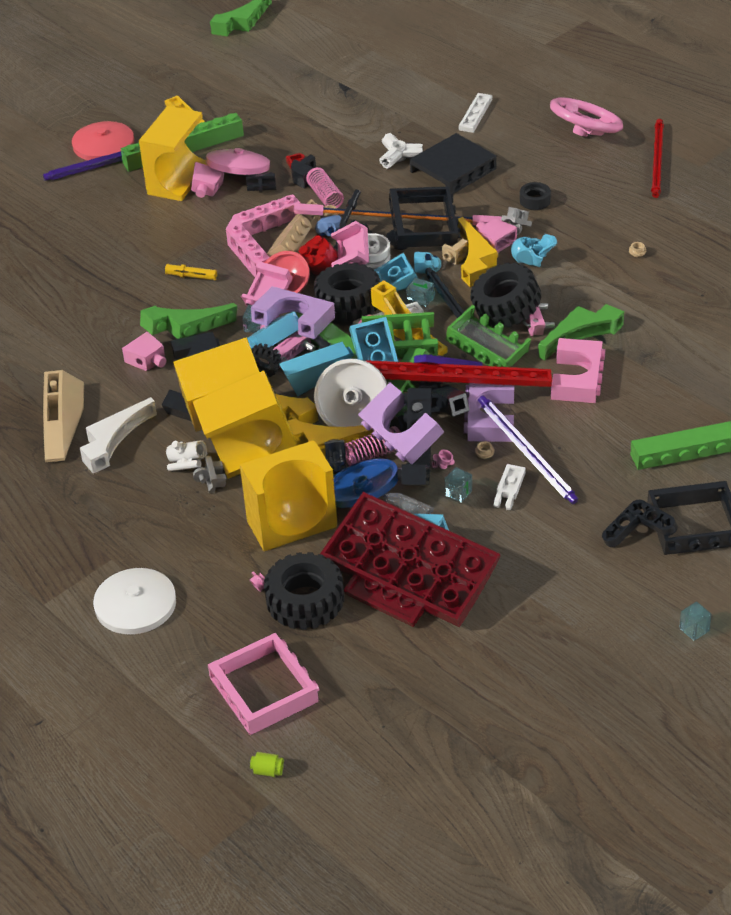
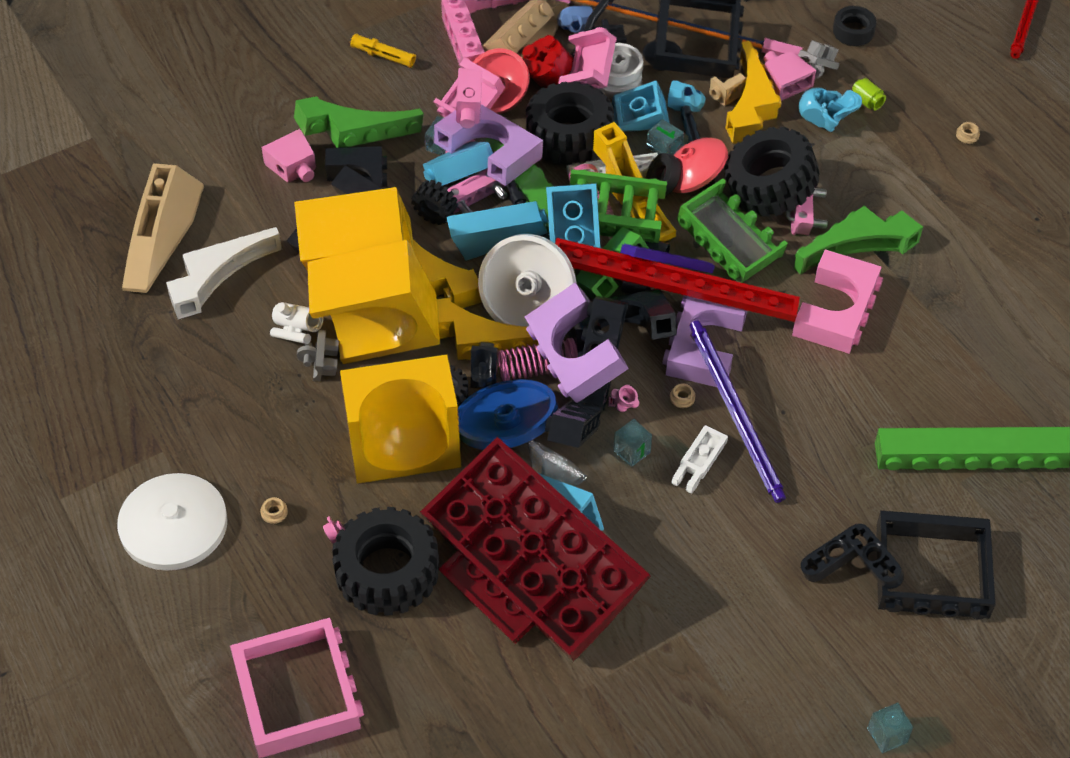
camera: 10 degrees right, 10 degrees up
(208, 578) = (274, 504): none -> tan plate
(272, 289) = (468, 107): none -> bright pink torso
(433, 305) = (673, 170): none -> black tyre
(449, 301) = (700, 163): none -> coral dish
(563, 237) = (871, 95): none -> lime brick

